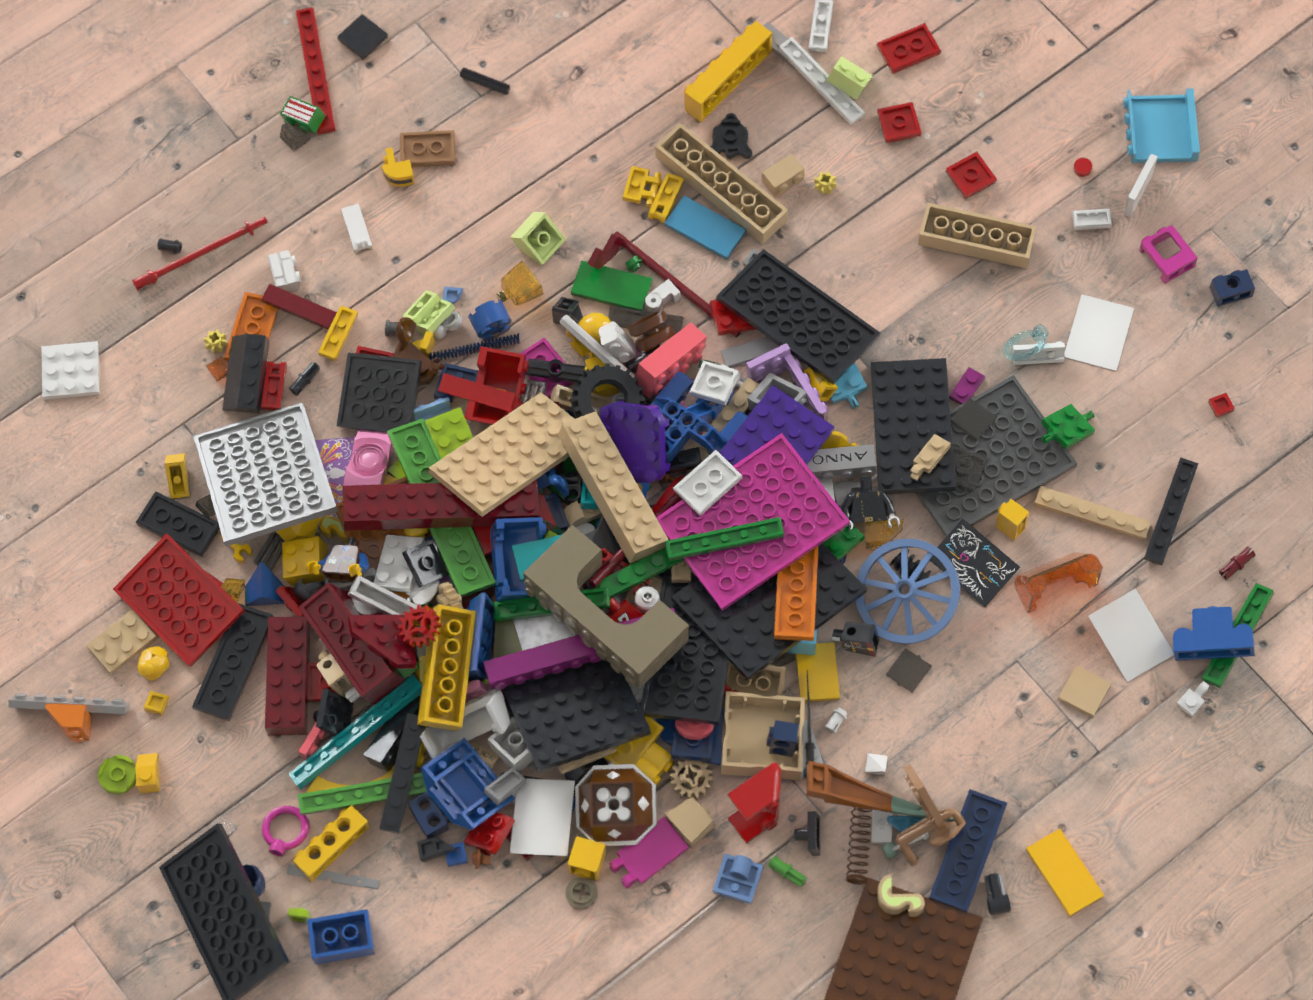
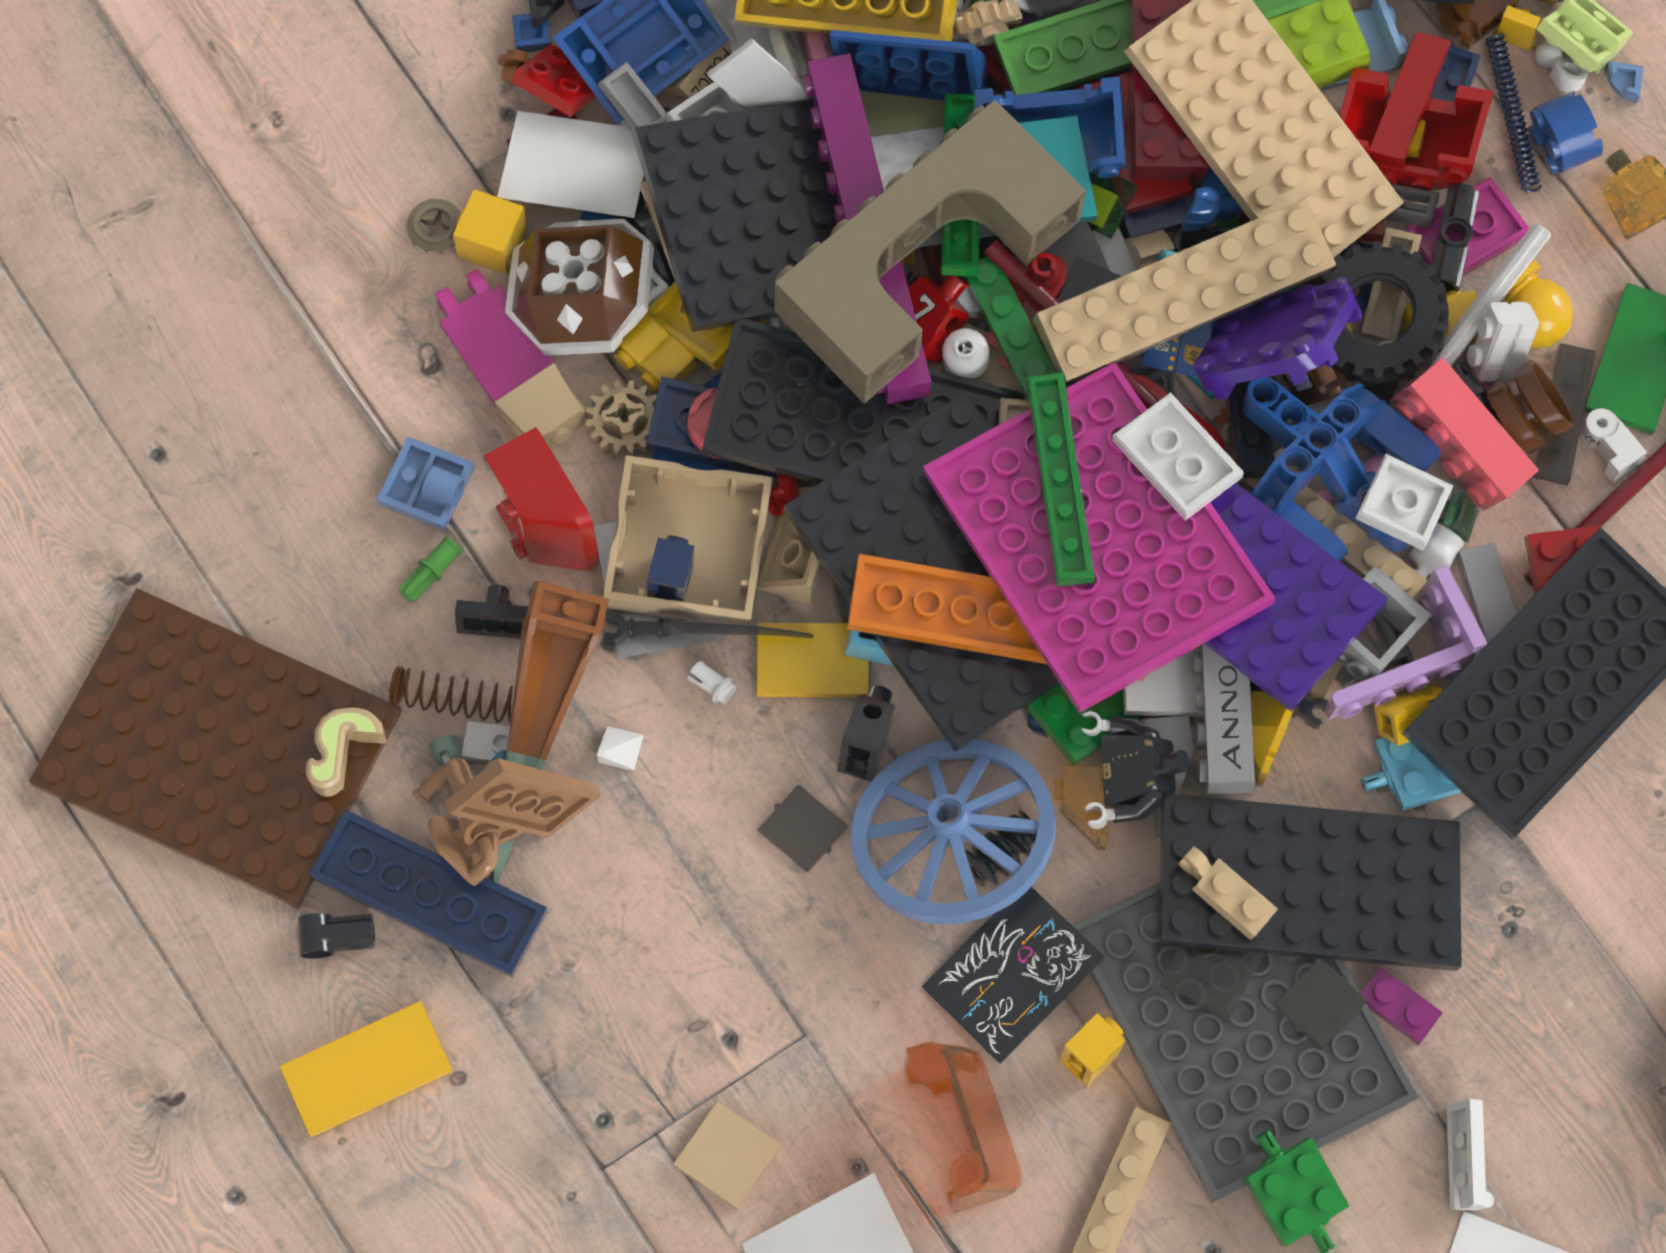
camera: 90 degrees right, 5 degrees up
(566, 307) = (1587, 273): black slope -> none
(1039, 334) = (1510, 1157): clear light blue piece -> none

